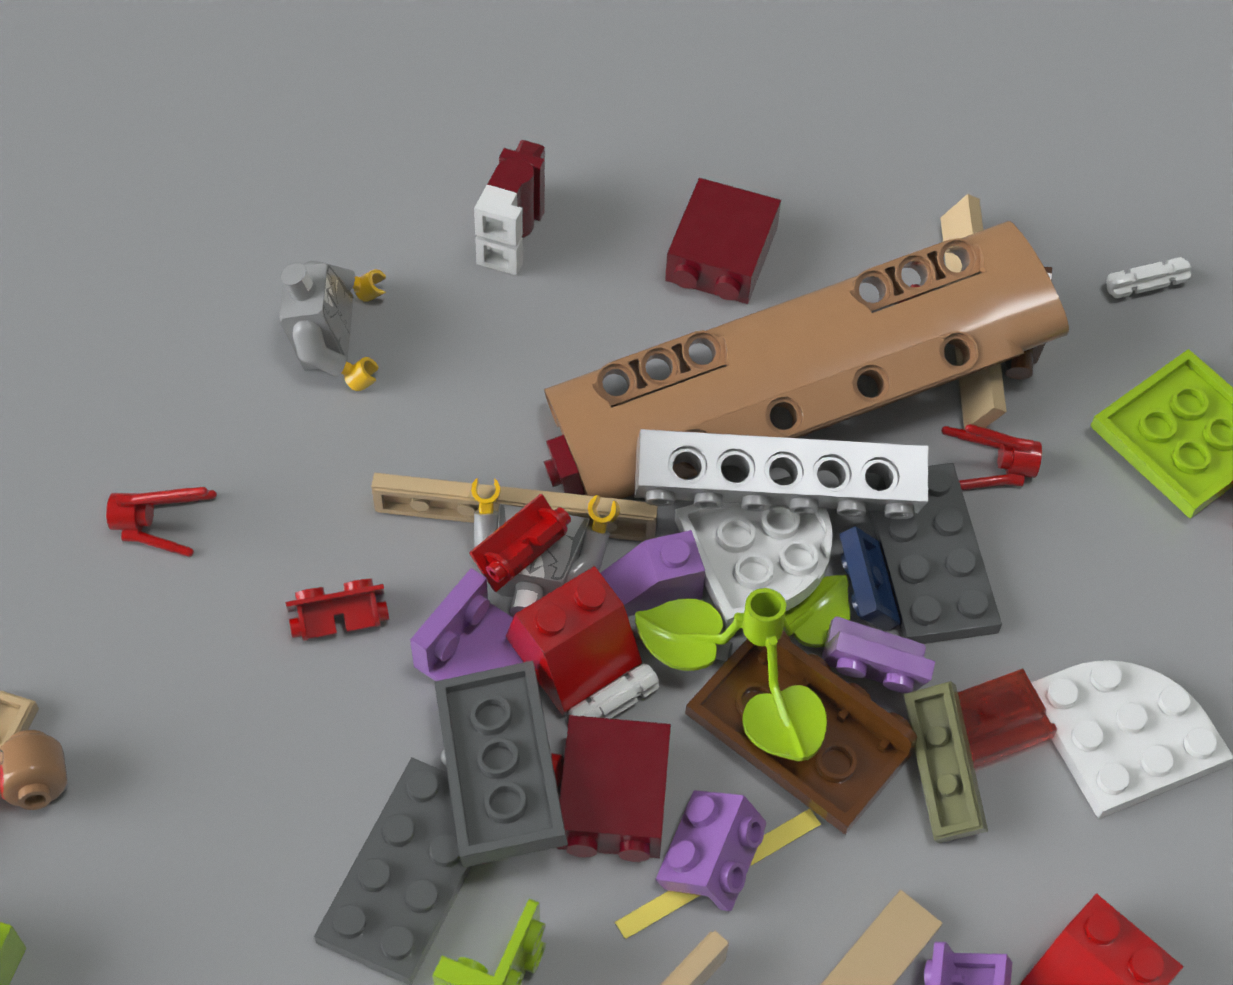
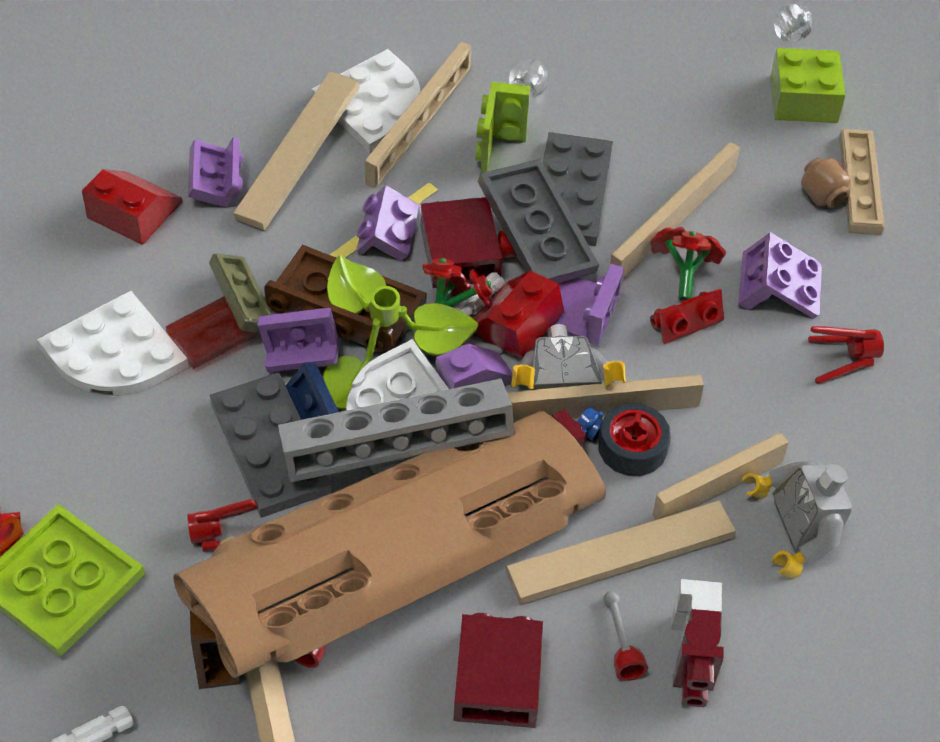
camera: 165 degrees right, 5 degrees down
(191, 630) = (780, 270): none -> medium lavender bracket
(275, 774) = (677, 207): none -> tan tile
(297, 667) = (706, 247): none -> plant
(400, 381) = (720, 477): none -> tan tile
(487, 431) = (630, 455): none -> wheel
(520, 541) = (566, 347): red hinge -> none
(529, 477) = (591, 422): none -> blue plate
(541, 339) = (619, 552): none -> tan tile
(582, 227) = (628, 660): none -> red hinge
(662, 687) = (452, 282): none -> red plant

